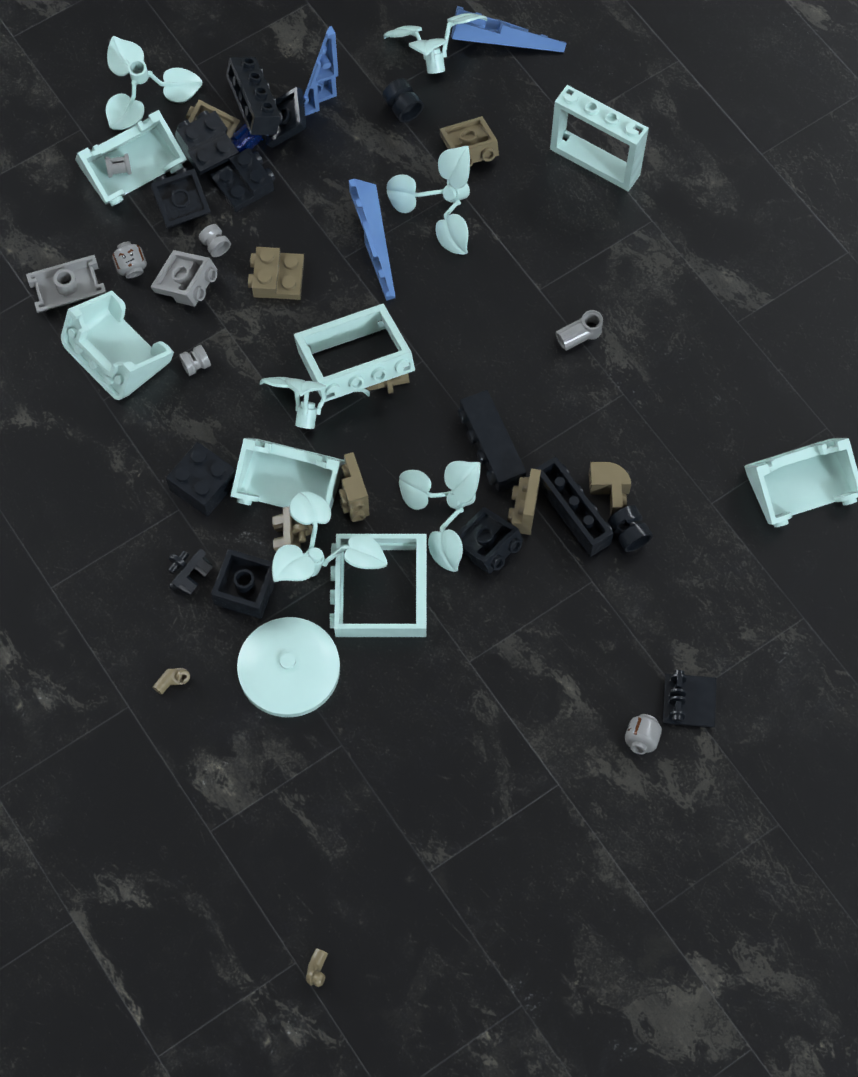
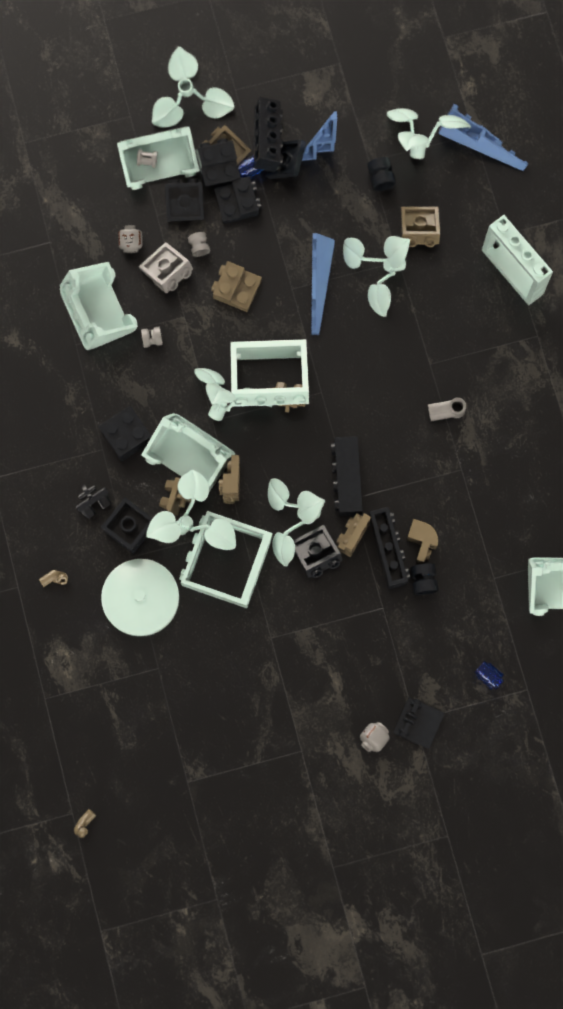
camera: 20 degrees right, 10 degrees up
(54, 293) = (88, 249): light grey piece -> none
(753, 614) = (489, 675): none -> clear blue brick

